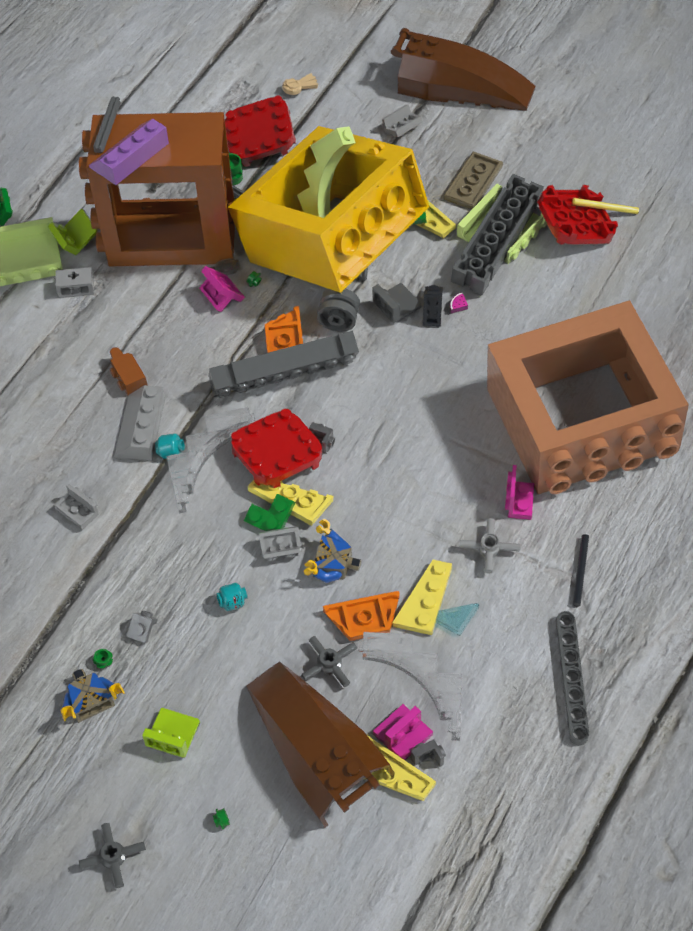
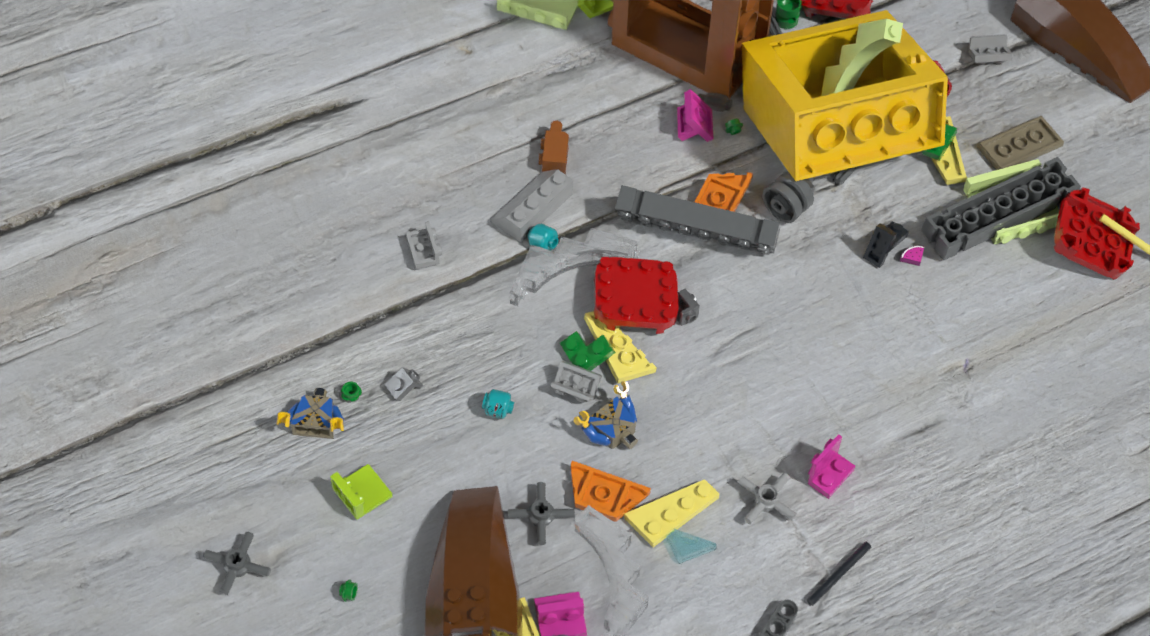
camera: 30 degrees right, 0 degrees up
(74, 282) = (568, 42): light grey brick -> none
(395, 302) = (852, 221): dark grey bracket -> none
(602, 444) = (949, 466): nougat door -> none

